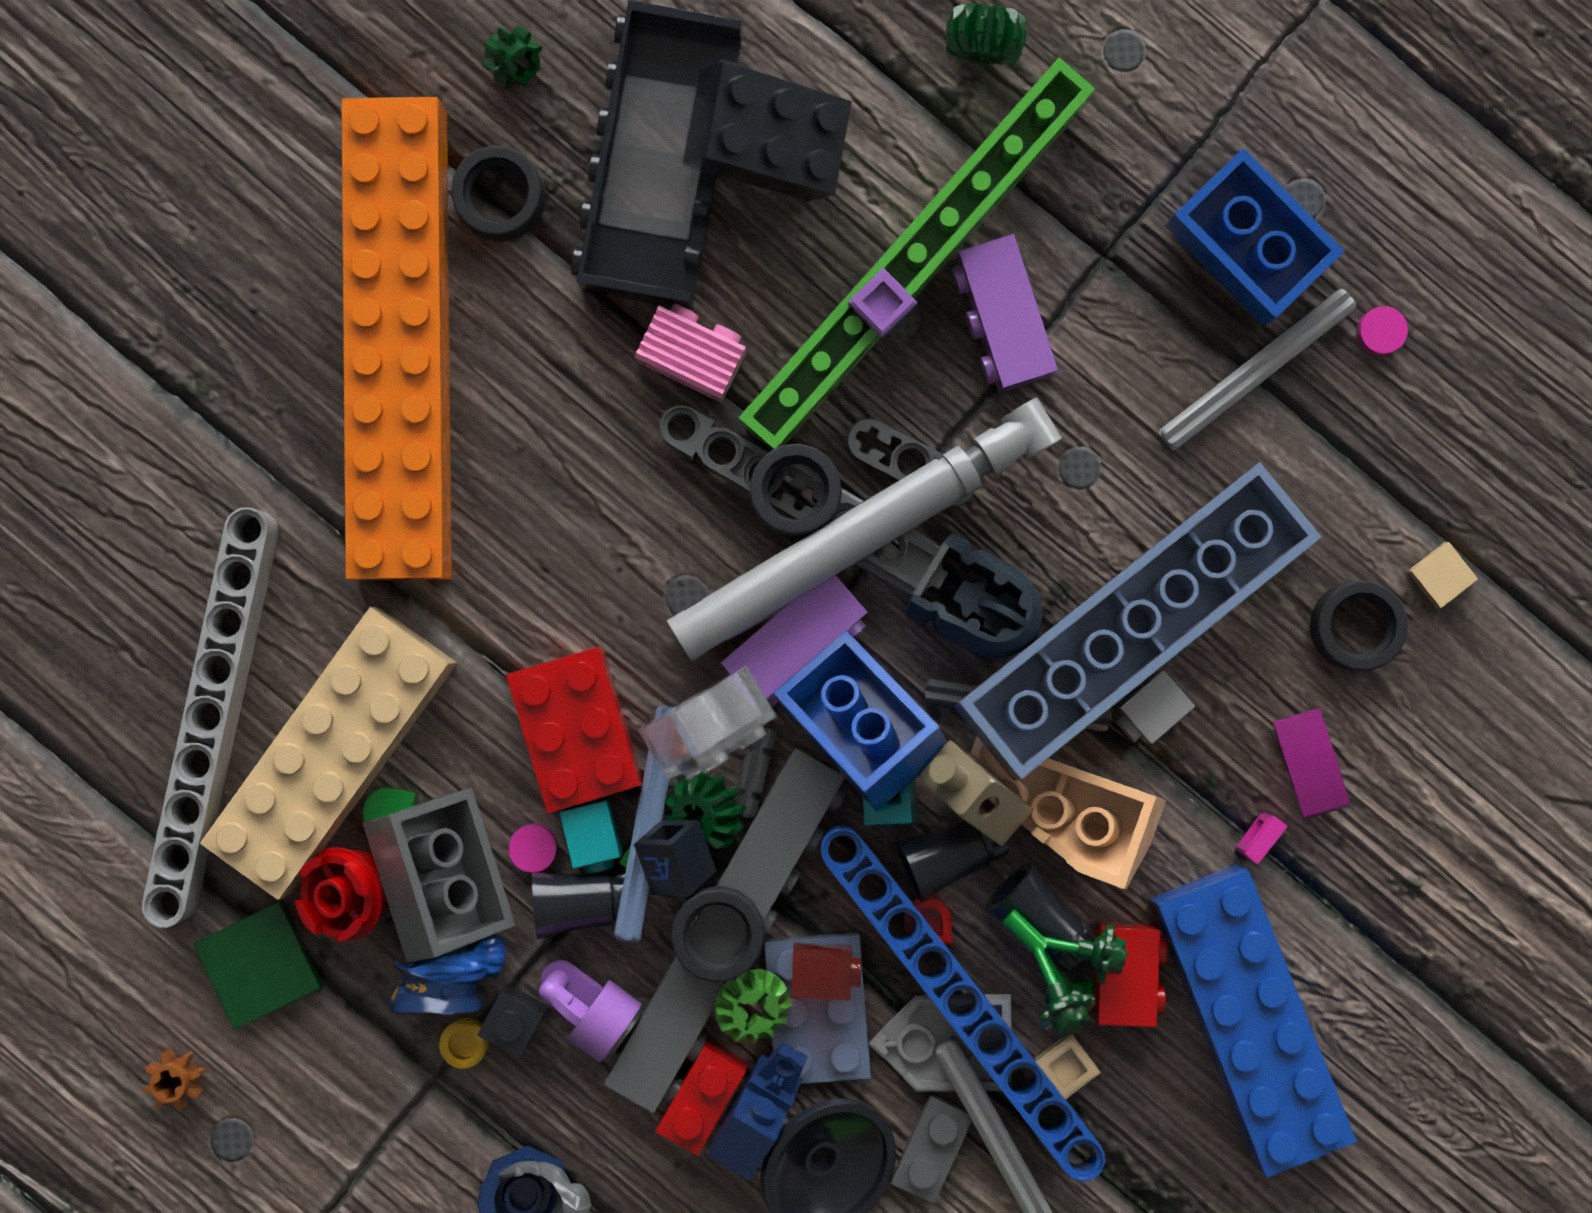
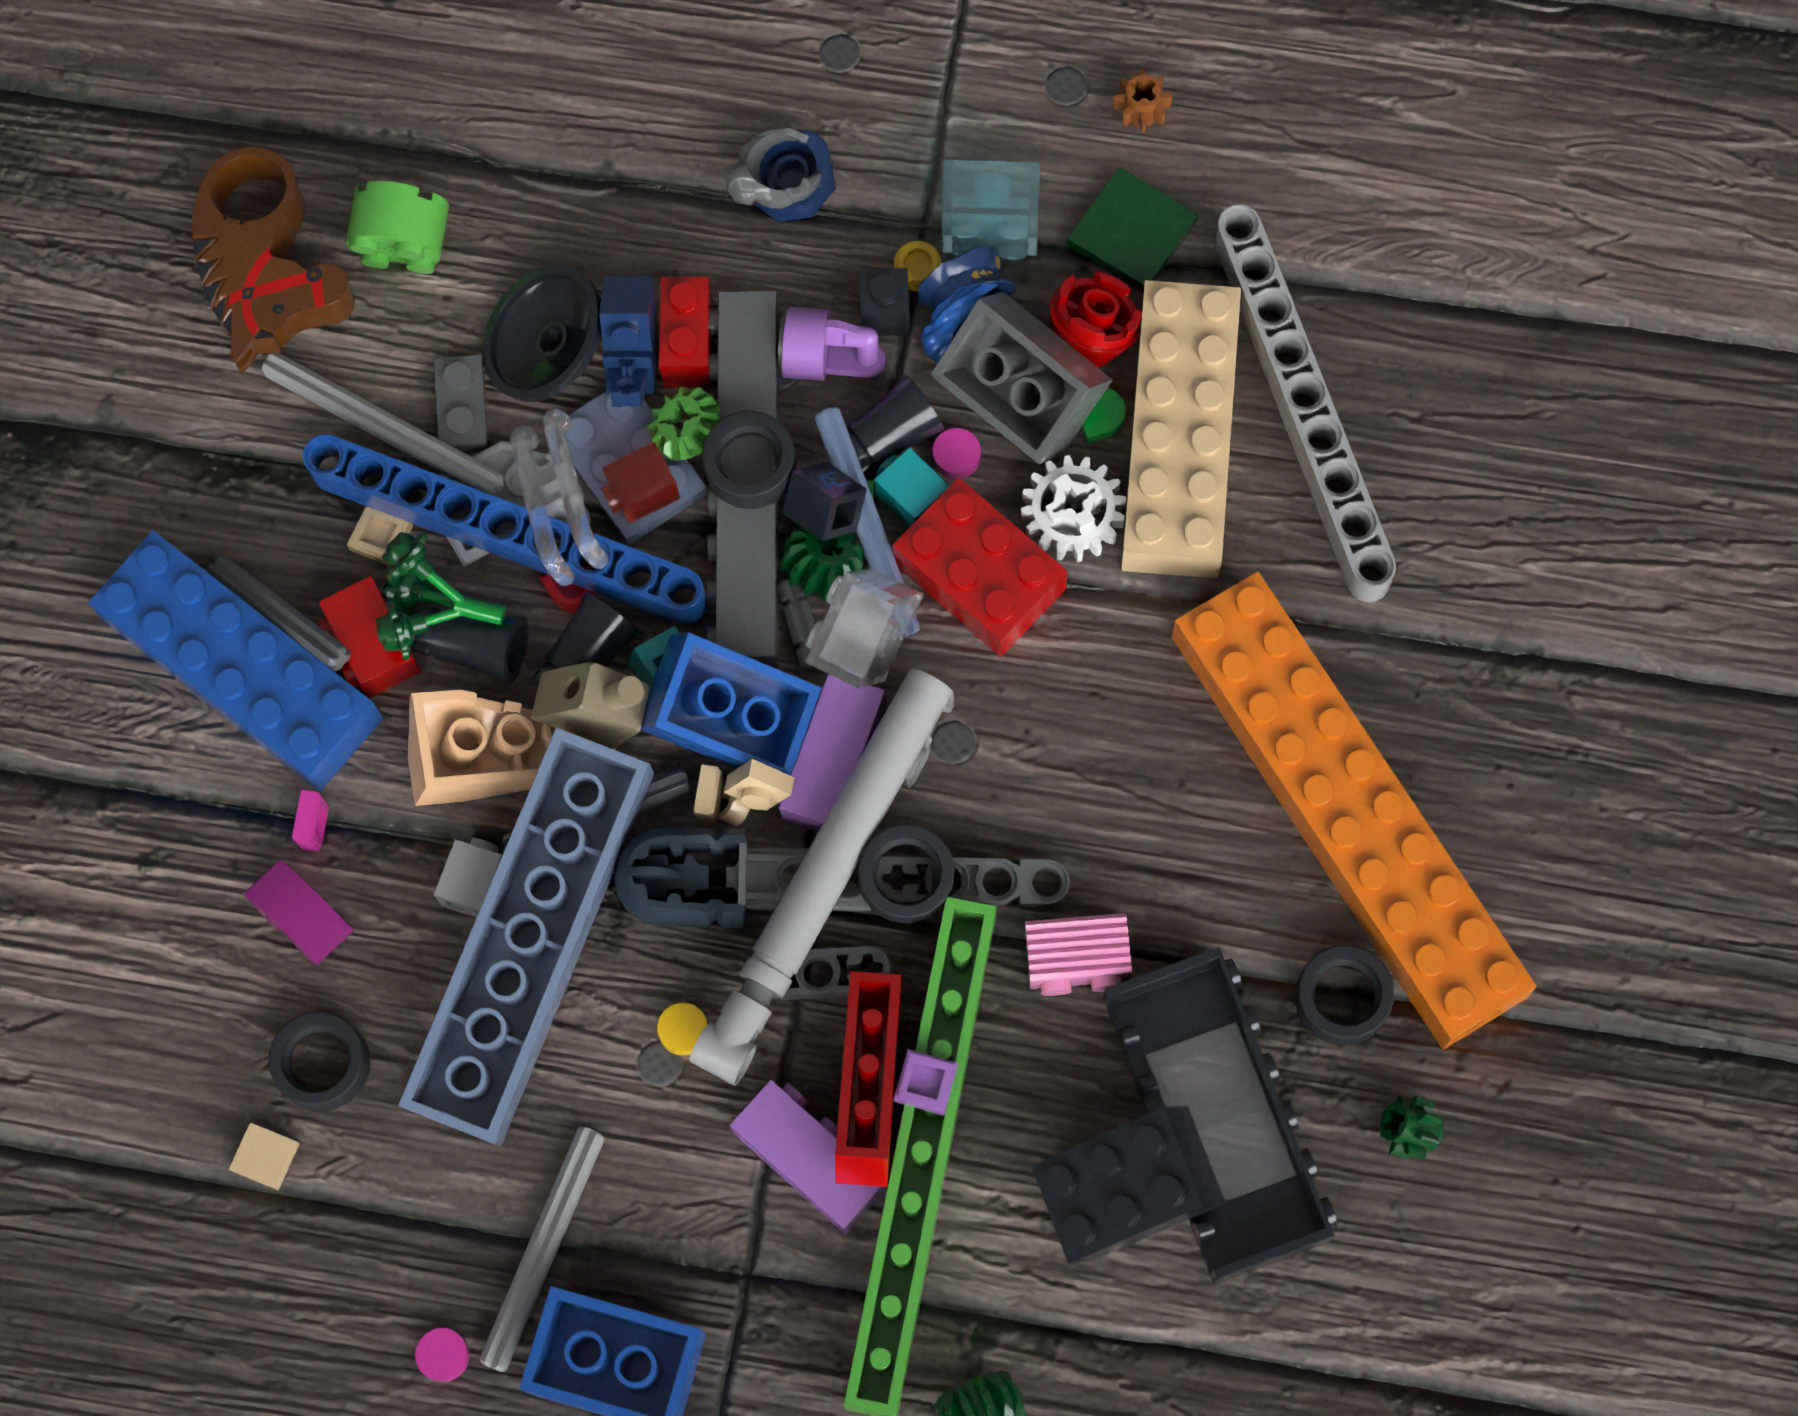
camera: 155 degrees right, 15 degrees down
(369, 1050) = (991, 207): none -> clear light blue brick
(464, 758) = (1067, 490): none -> white gear
(879, 639) = (755, 788): none -> tan plate
(904, 1002) = (554, 494): none -> clear piece
(917, 663) = (708, 795): none -> tan tile
(925, 337) = (868, 1079): none -> red brick
(1046, 482) = (680, 1028): none -> yellow tile
(1193, 1039) = (280, 613): none -> dark grey axle

